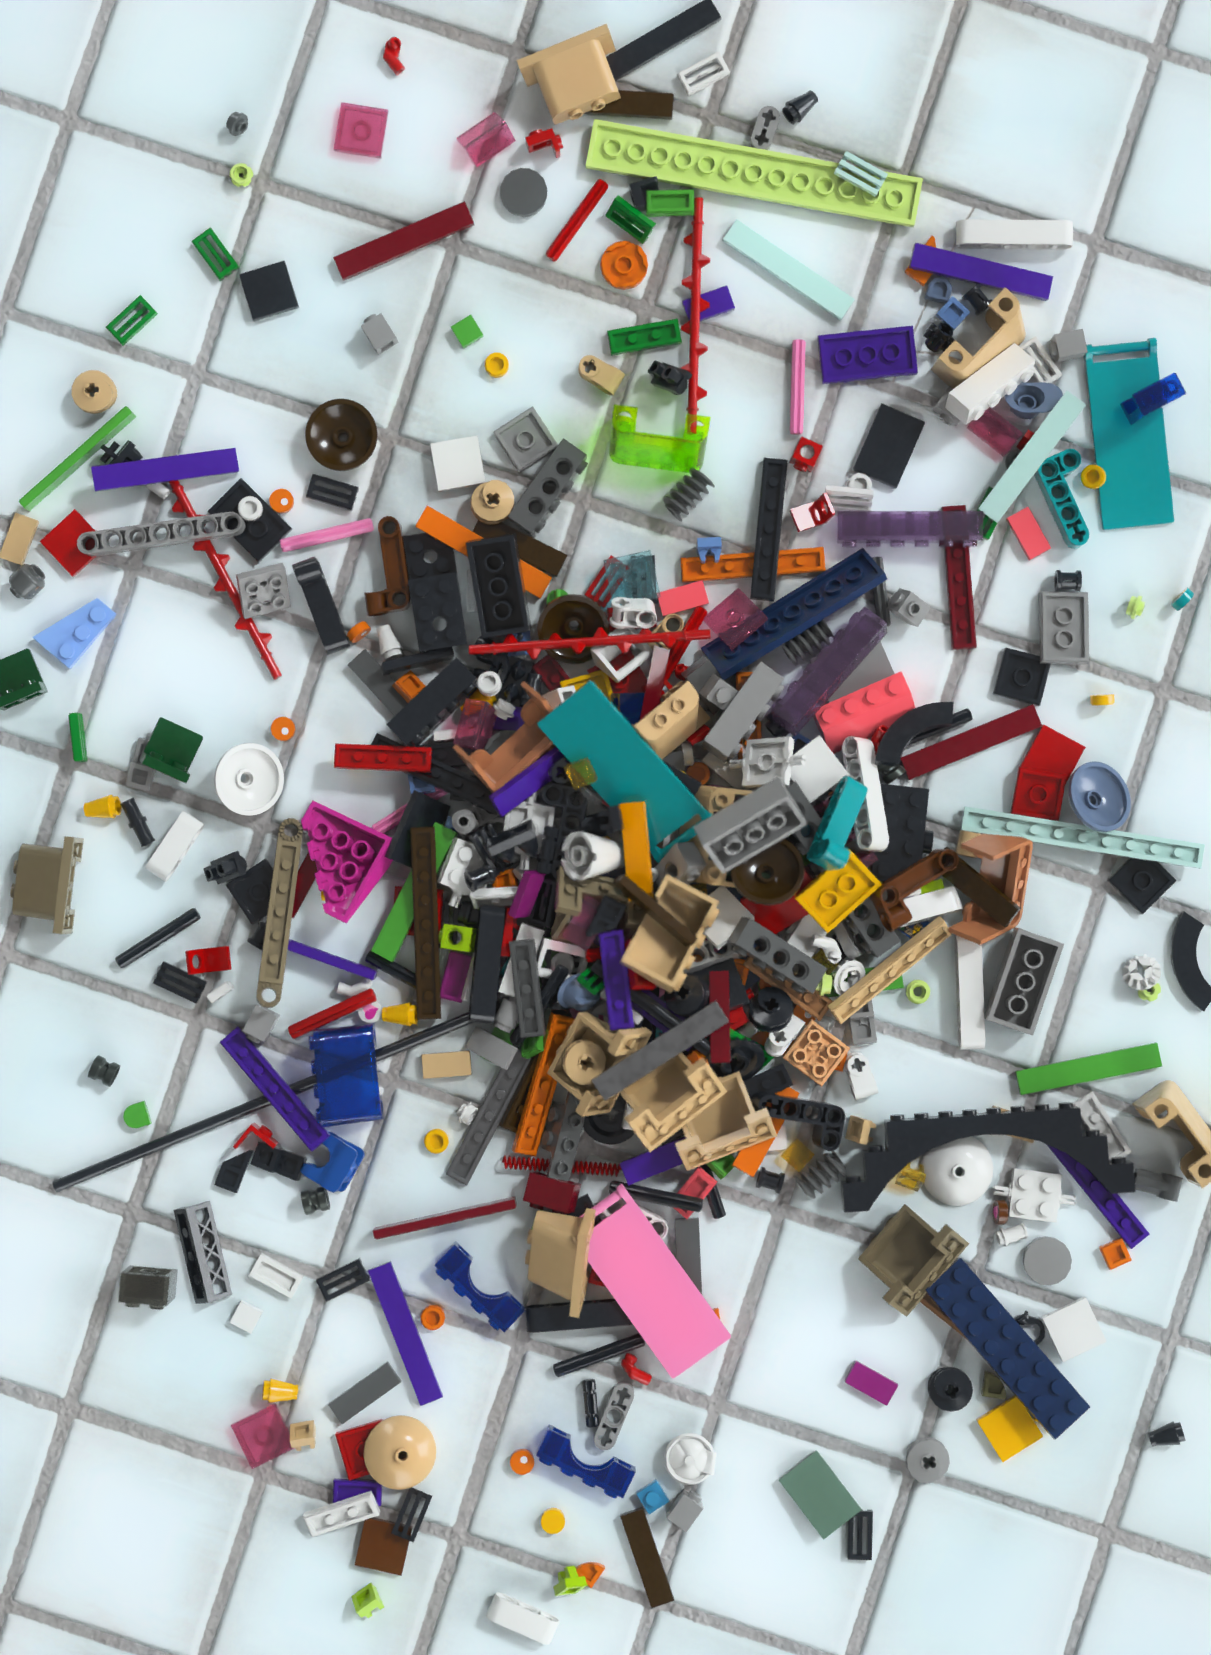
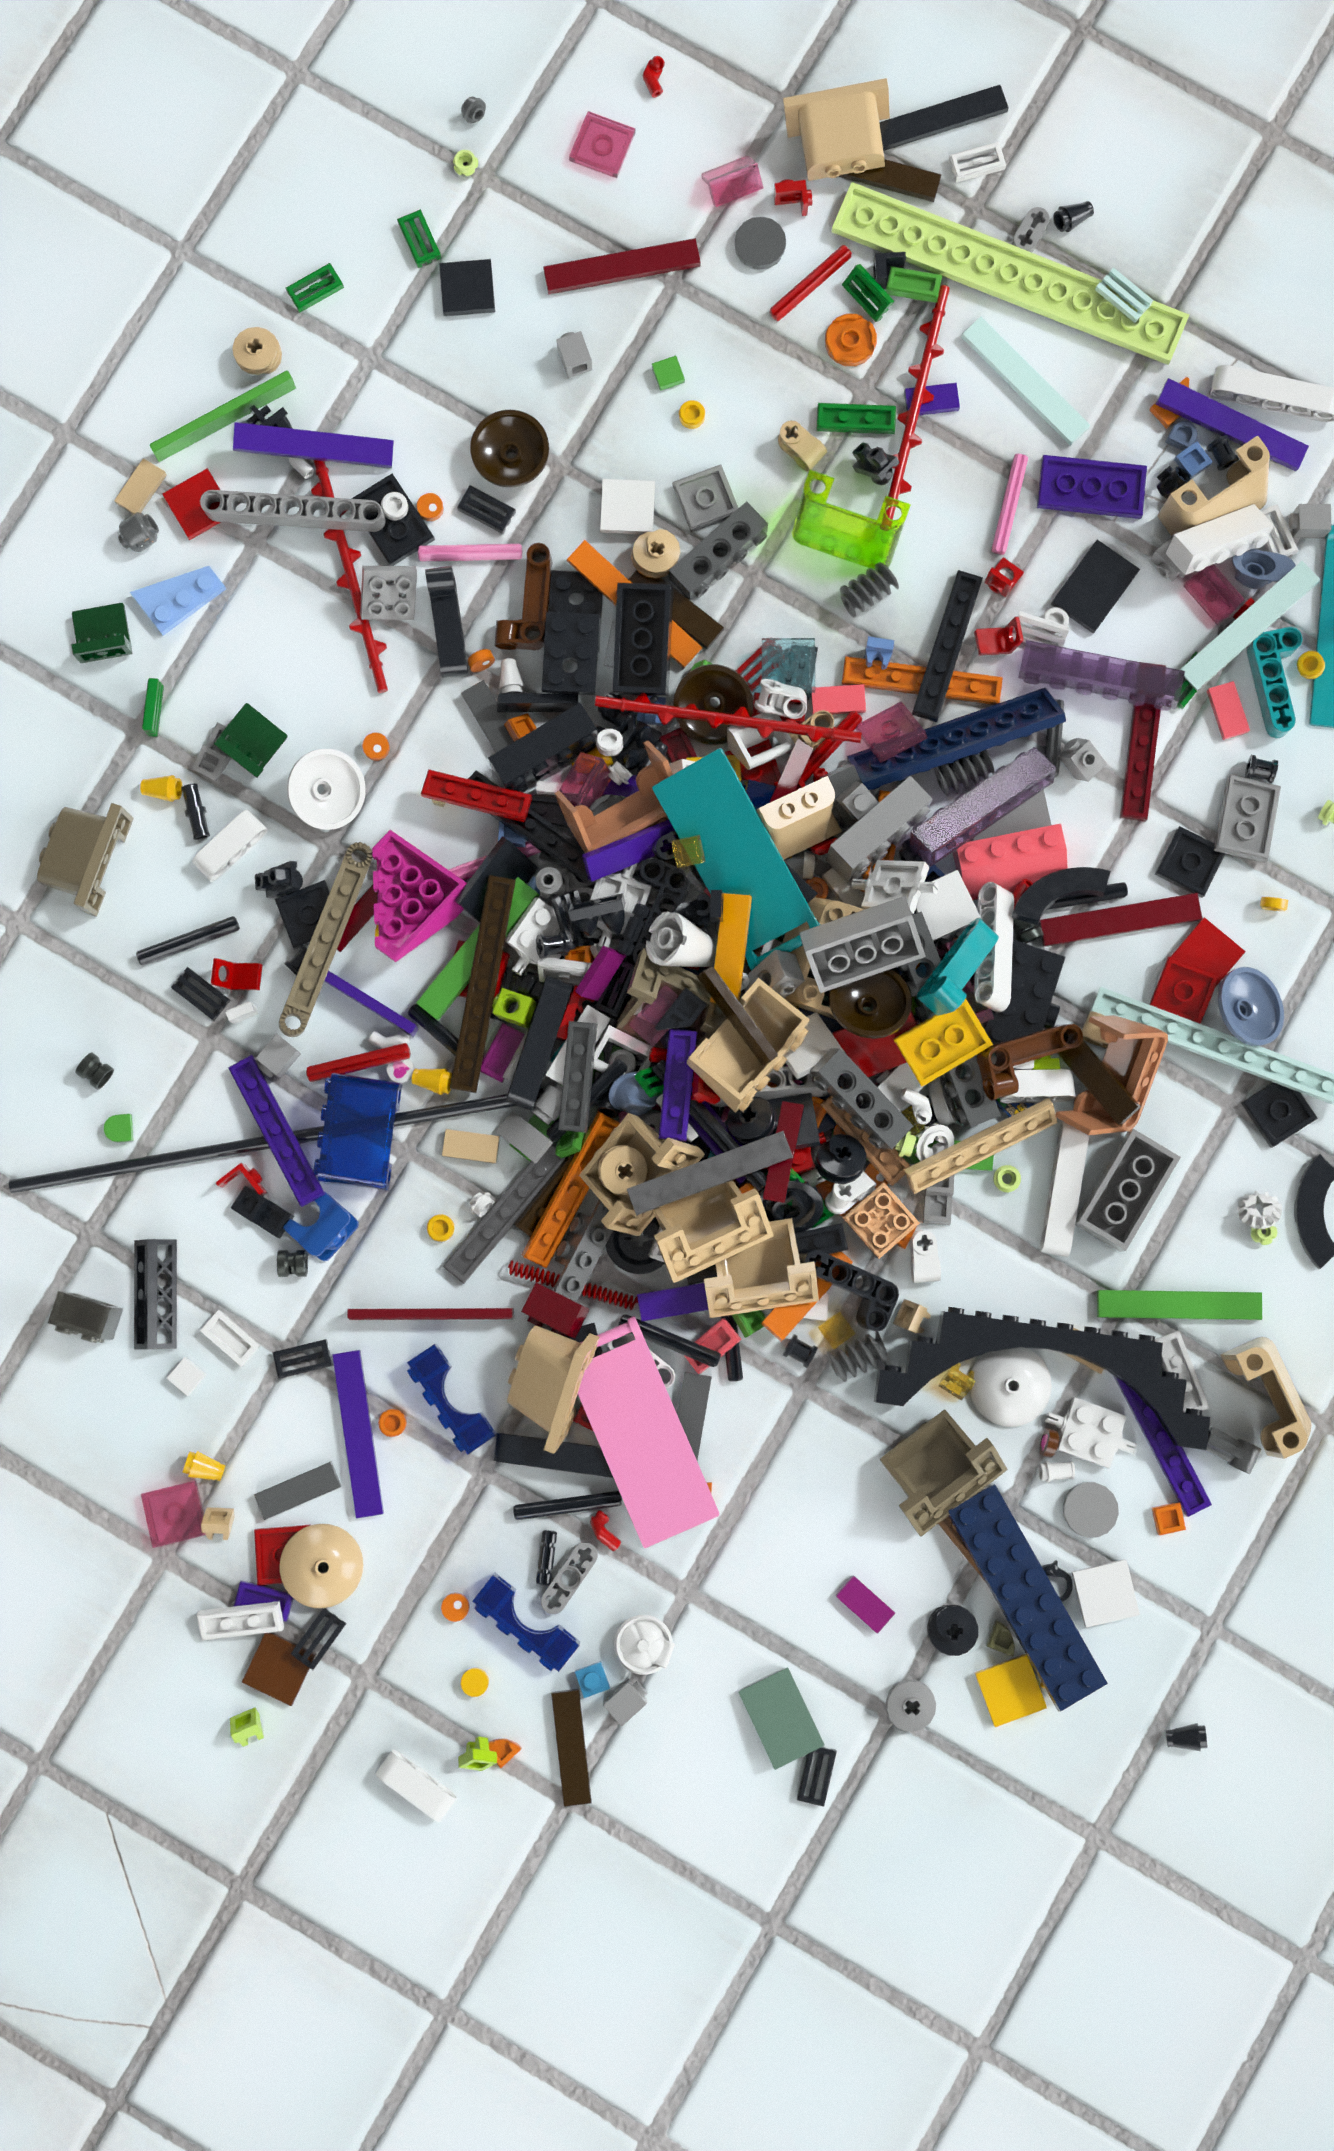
camera: 15 degrees right, 5 degrees down
(233, 1171) = (210, 1212): black tile -> none

